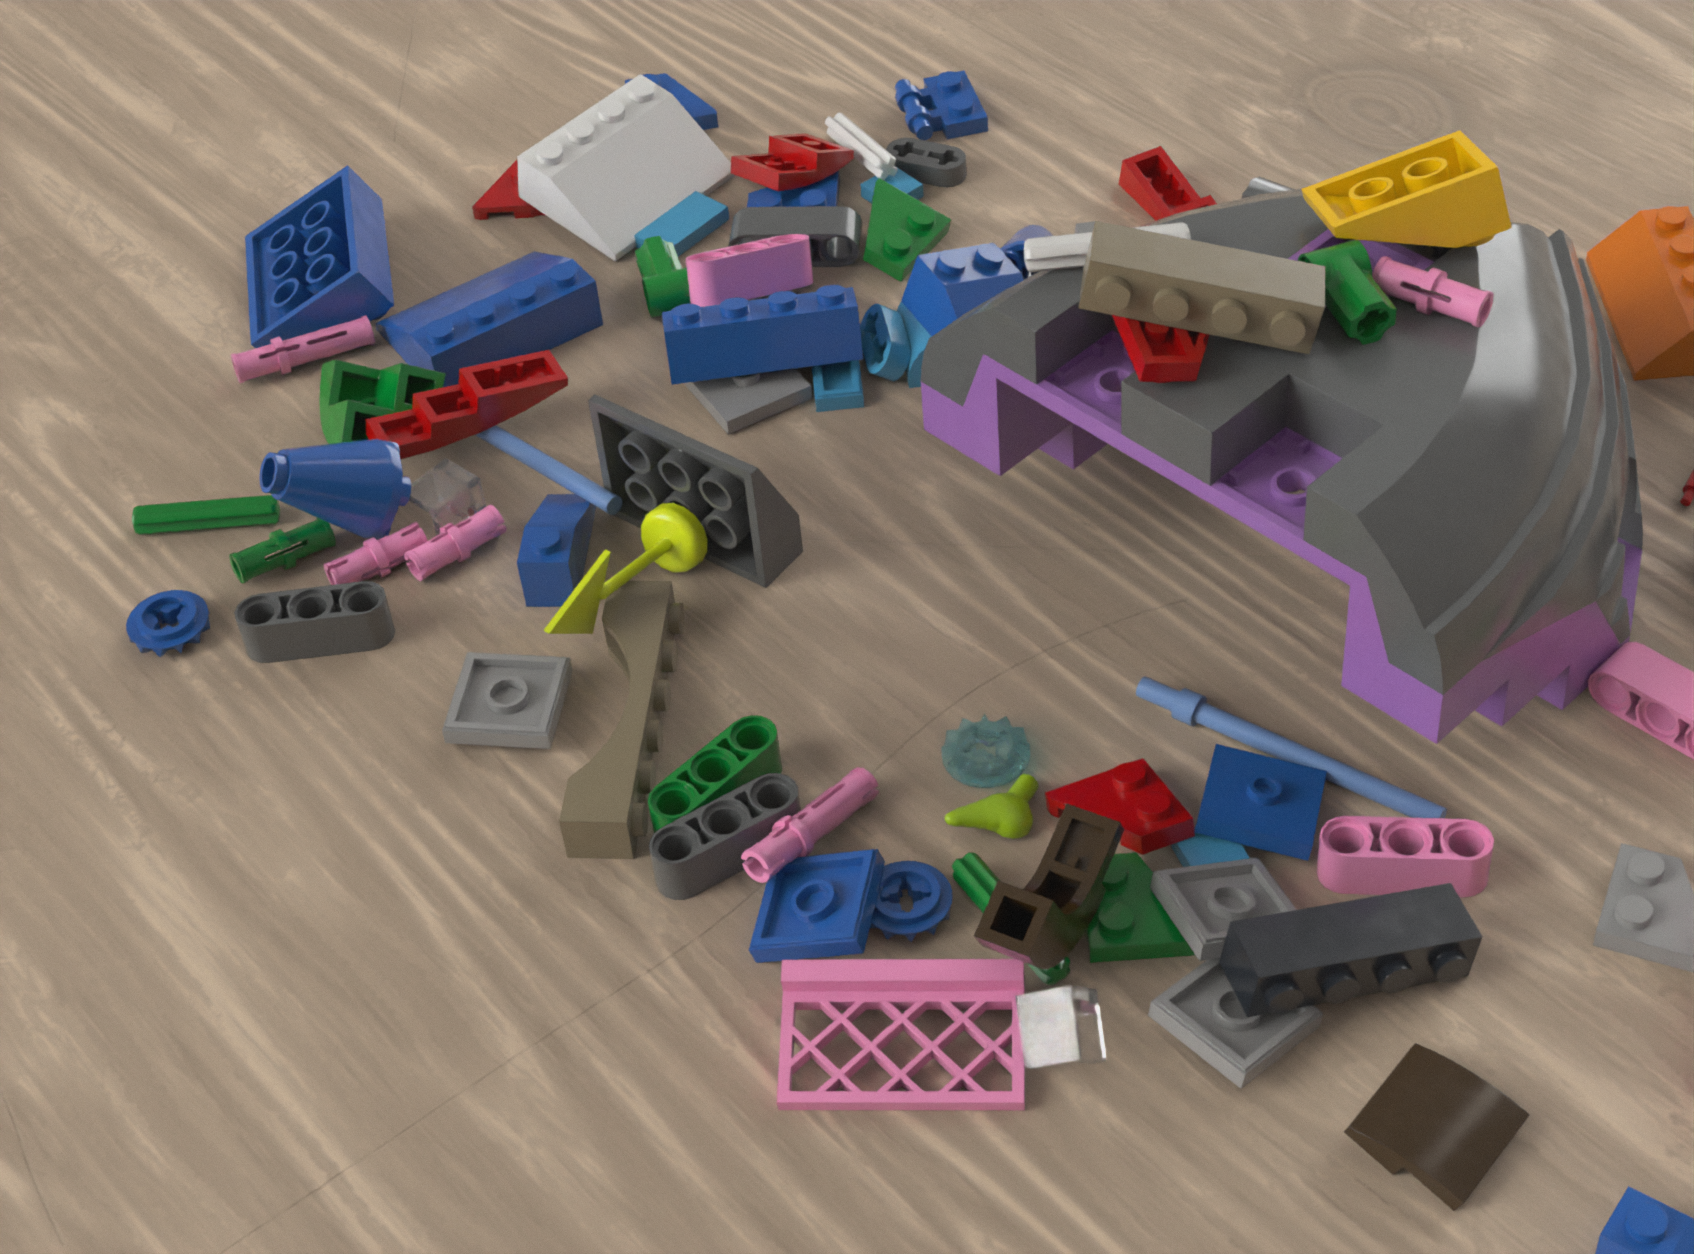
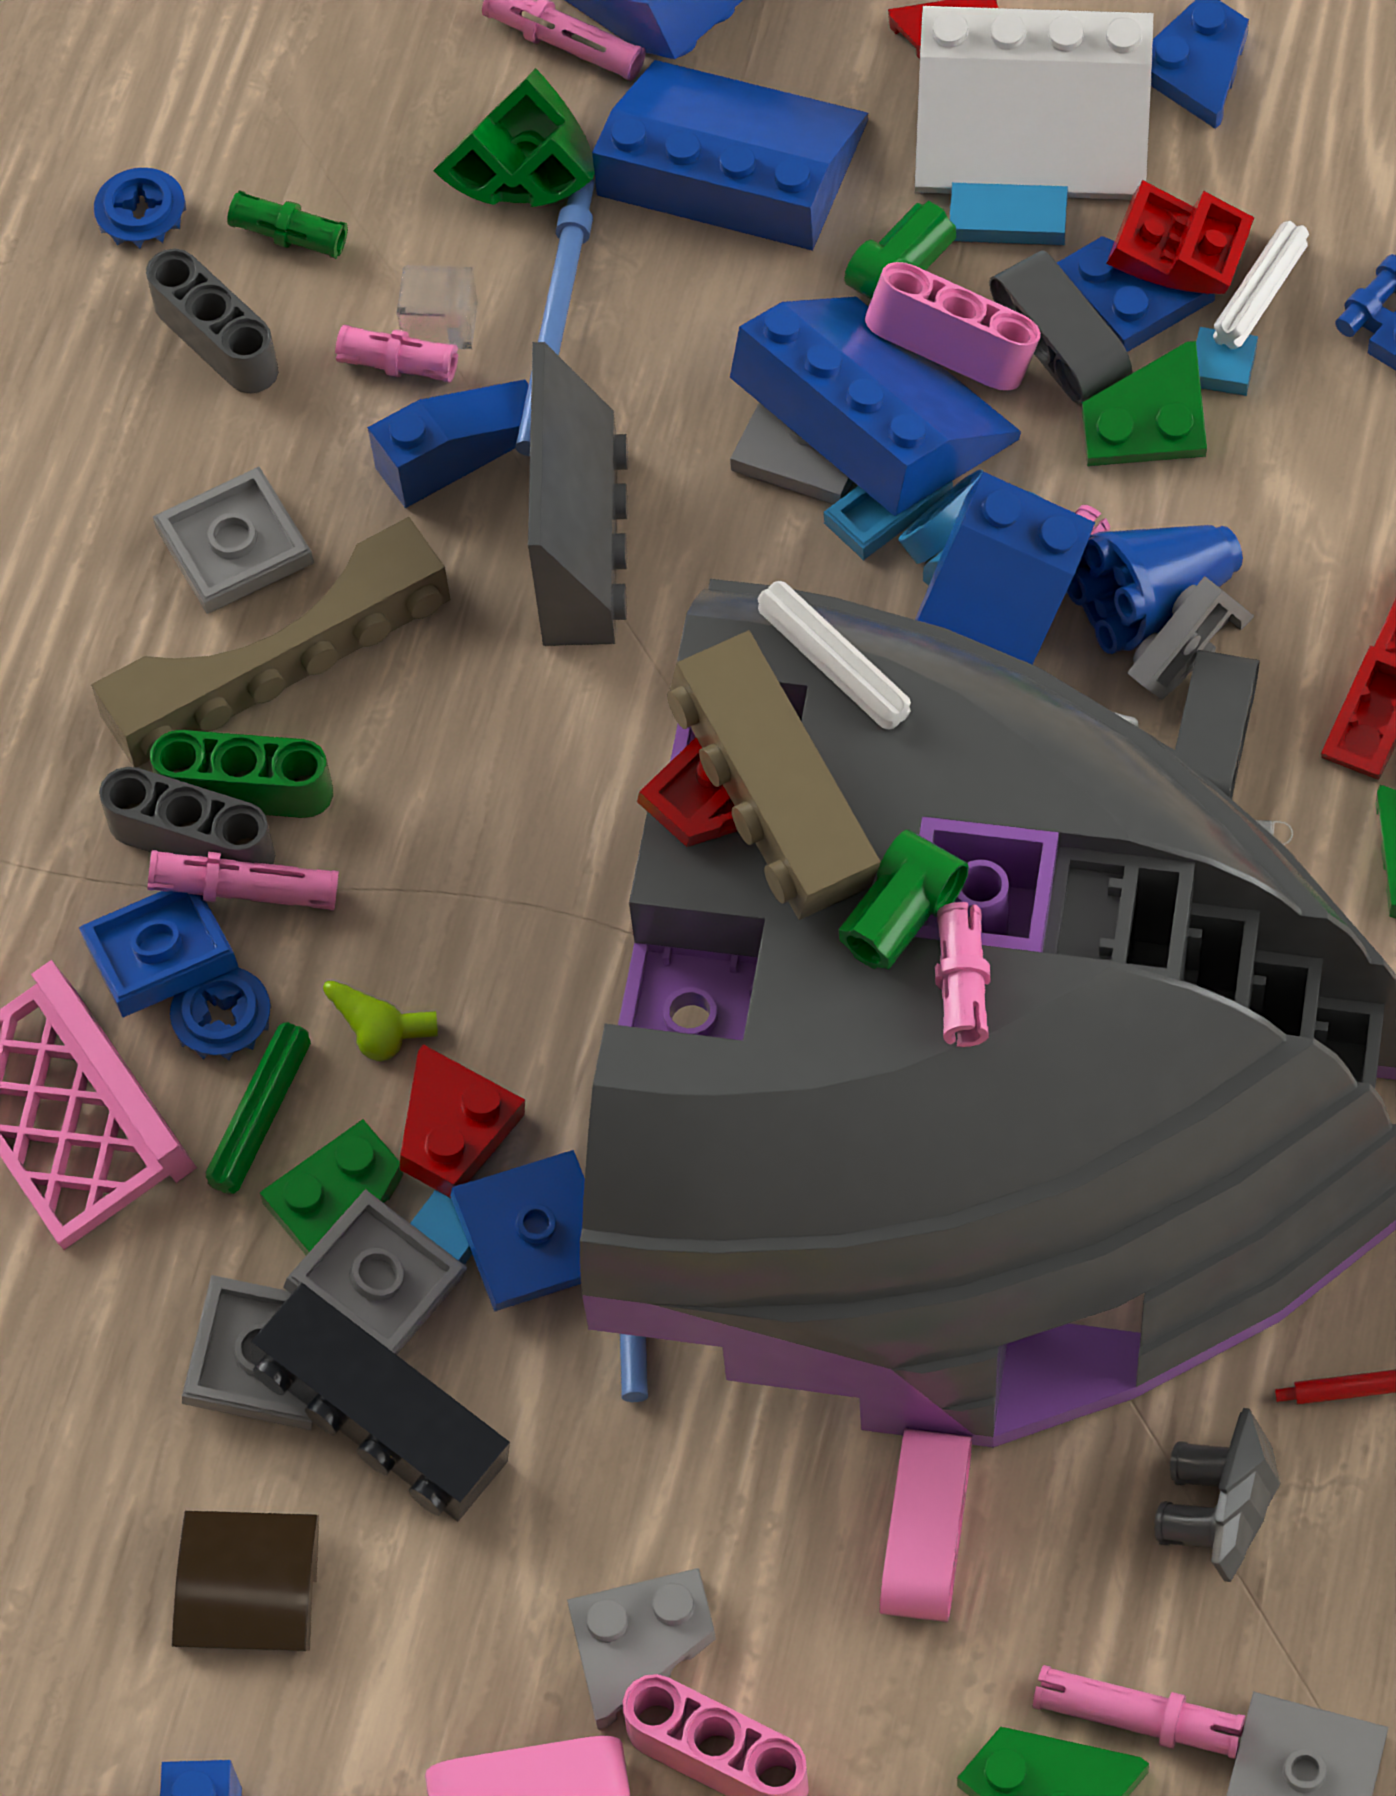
camera: 55 degrees right, 15 degrees up
(205, 514) = (292, 129): green axle -> none
(341, 483) = (358, 210): blue cone -> none
(375, 556) = (334, 304): bright pink pin -> none
(481, 400) = (559, 233): red slope -> none
(671, 540) = (354, 517): neon yellow piece -> none
(929, 161) = (1285, 364): dark grey beam -> none
(980, 767) = (459, 985): clear light blue gear -> none
(1060, 1026) = (147, 1223): clear panel -> none
(1061, 898) = (241, 1136): dark brown arch -> none
(1403, 854) = (538, 1361): bright pink beam -> none
(1421, 196) = (1079, 878): yellow slope -> none

